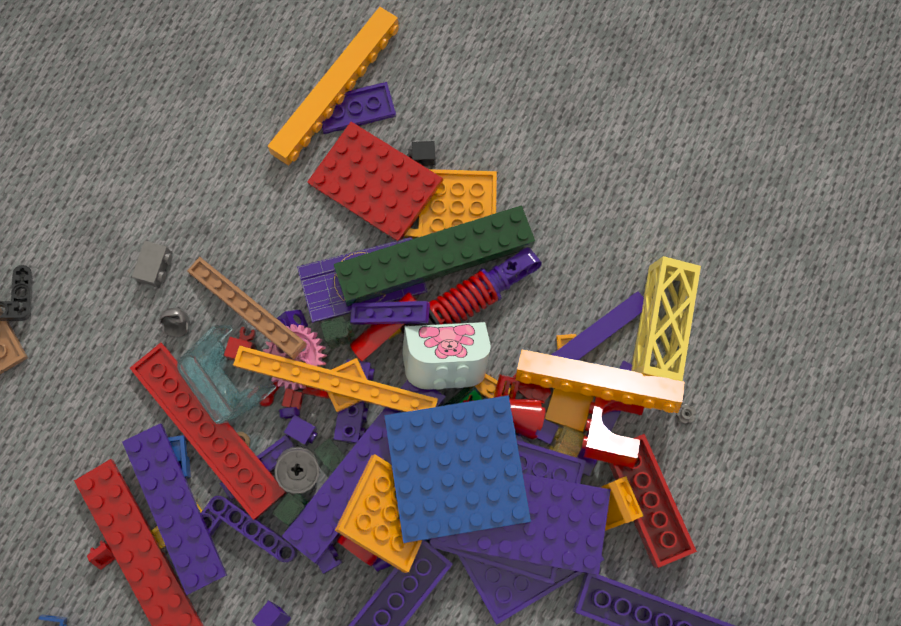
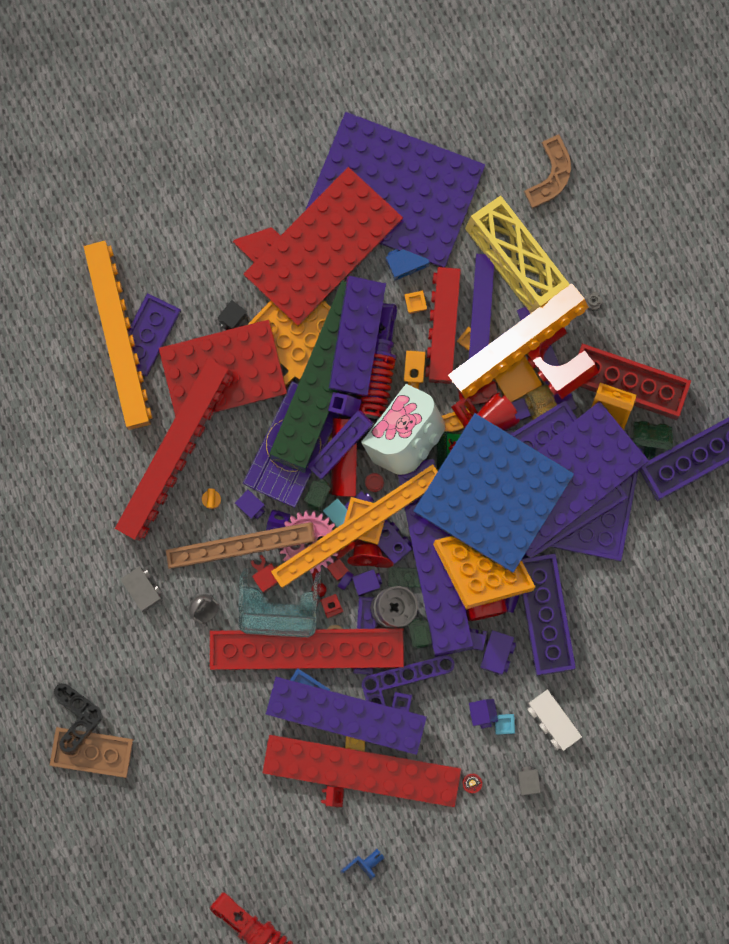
camera: 45 degrees left, 5 degrees up
(218, 542) = (402, 697): none -> dark purple piece
(263, 425) = (333, 611): none -> red piece
(268, 257) = (211, 499): none -> light orange plate
(277, 194) = (174, 450): none -> red brick
(287, 289) = (250, 505): none -> dark purple brick
(324, 412) = (368, 555): none -> red piece
(331, 587) = (497, 653): none -> dark purple brick
(336, 357) = (336, 512): none -> medium azure brick
(388, 368) = (374, 482): none -> red plate
(424, 288) = (344, 405): none -> dark purple brick
(487, 251) = (357, 336): none -> dark purple plate
(496, 129) = (256, 243): none -> red wing
(510, 315) = (414, 360): none -> light orange torso
(537, 172) = (323, 246): none -> red plate
(557, 278) = (415, 302): none -> light orange plate
(560, 314) = (444, 325): none -> red brick
(580, 244) = (404, 263): none -> blue slope
(621, 560) = (652, 437): none -> clear green plate
(629, 190) = (413, 176): none -> dark purple plate
(753, 302) = (558, 177): none -> medium nougat plate

